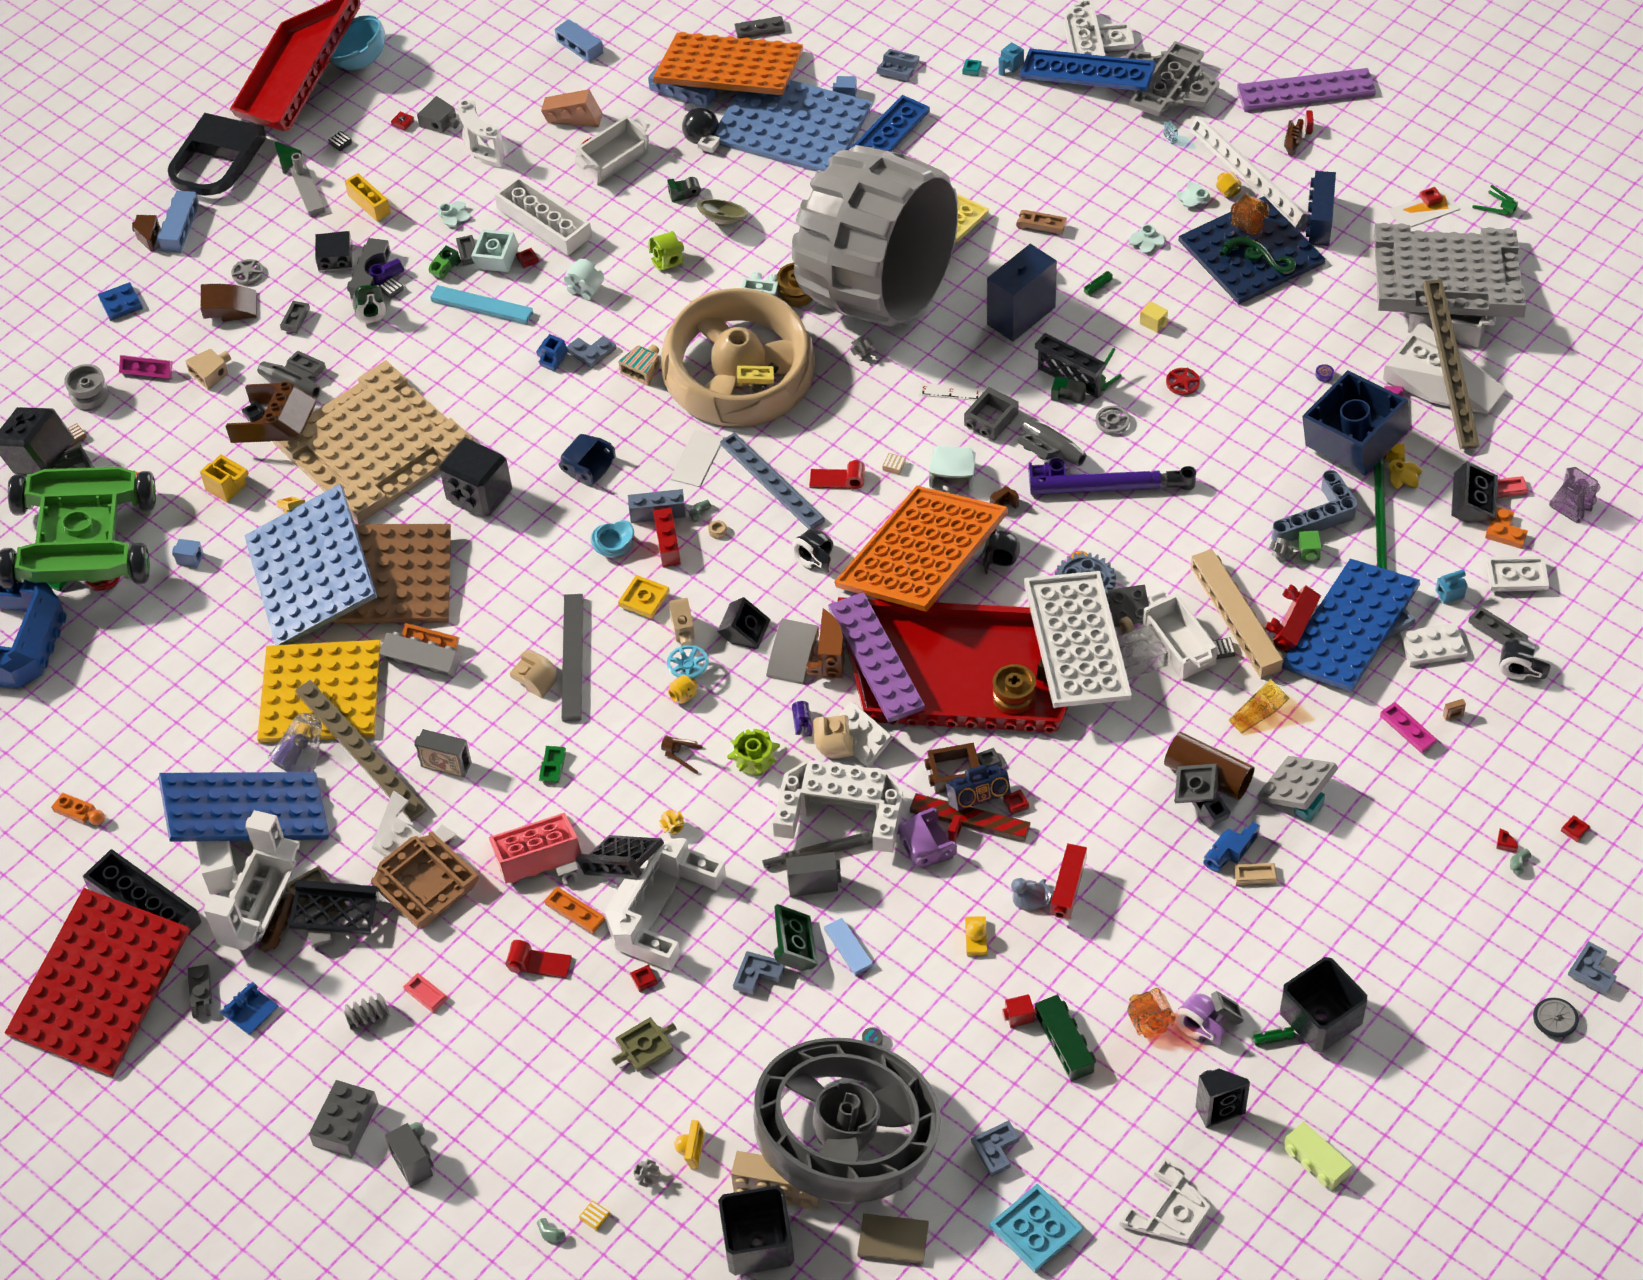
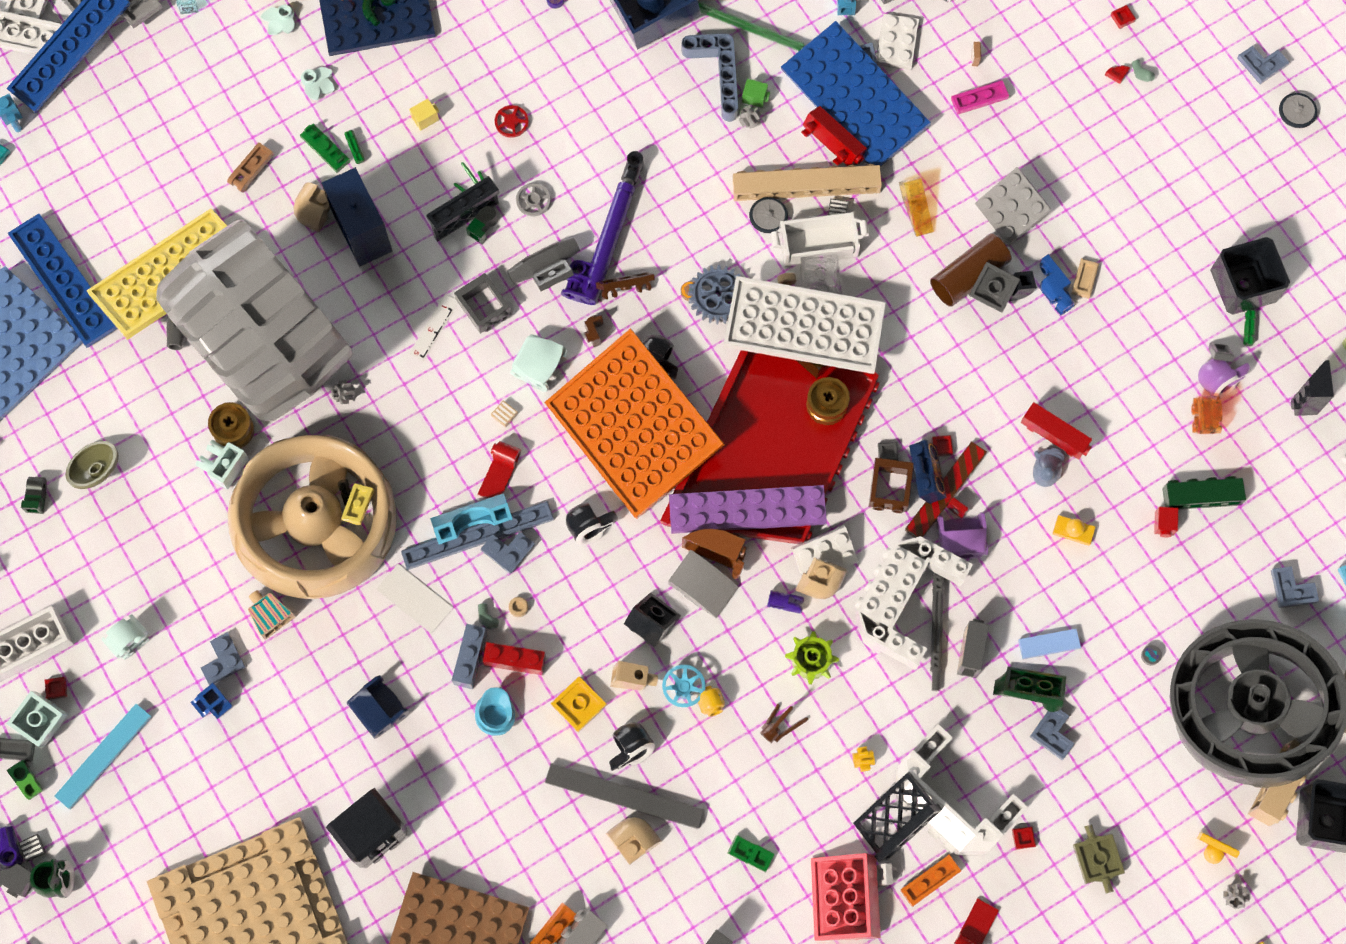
camera: 75 degrees left, 20 degrees up
(624, 641) = (633, 744): none -> black piece
(666, 250) = (124, 540): lime brick -> none
(762, 506) = (507, 556): none -> sand blue plate
(772, 455) = (451, 524): none -> medium azure arch
(1059, 504) = (625, 283): none -> reddish brown plate
(1087, 264) = (324, 147): none -> green plate
(1128, 603) = (763, 265): dark grey hinge -> none
(1191, 592) = (767, 214): none -> light grey wheel

